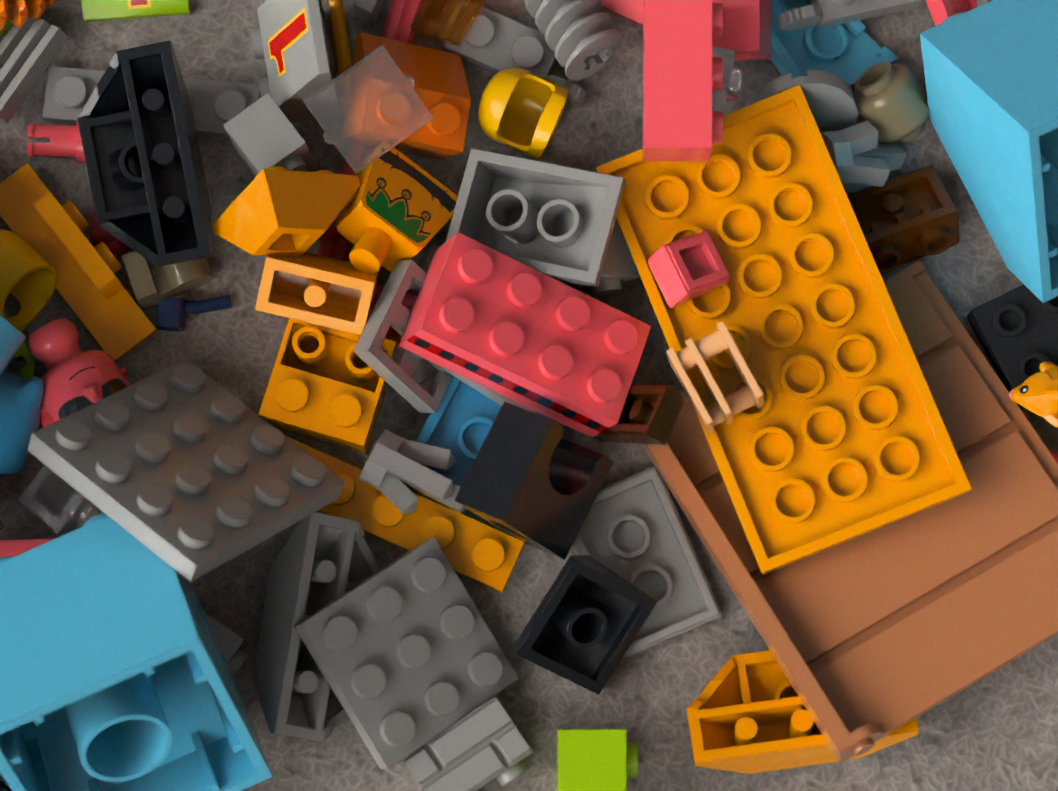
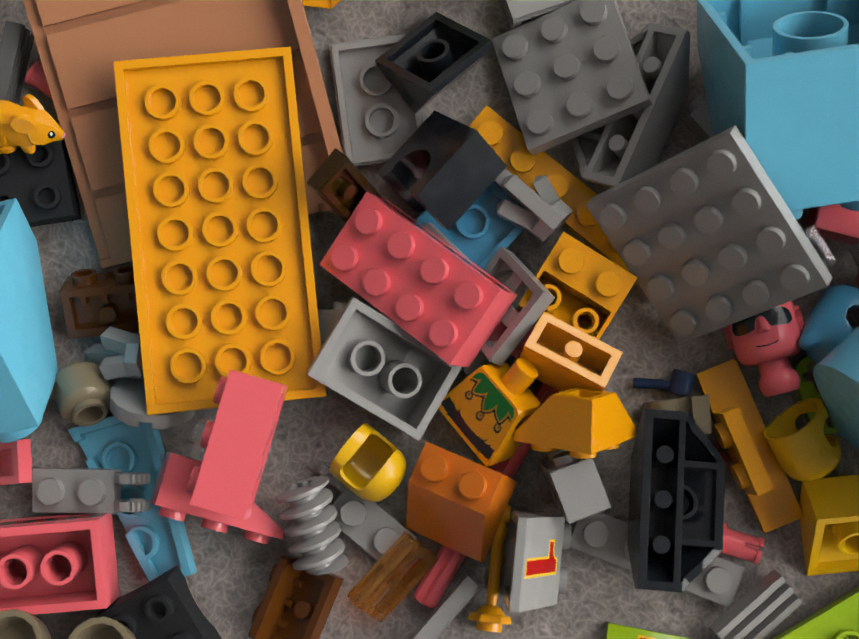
camera: 165 degrees left, 5 degrees up
(368, 109) = (492, 486): clear piece -> none
(688, 268) = (277, 291): coral slope -> none
(724, 407) = (277, 175): light nougat piece -> none

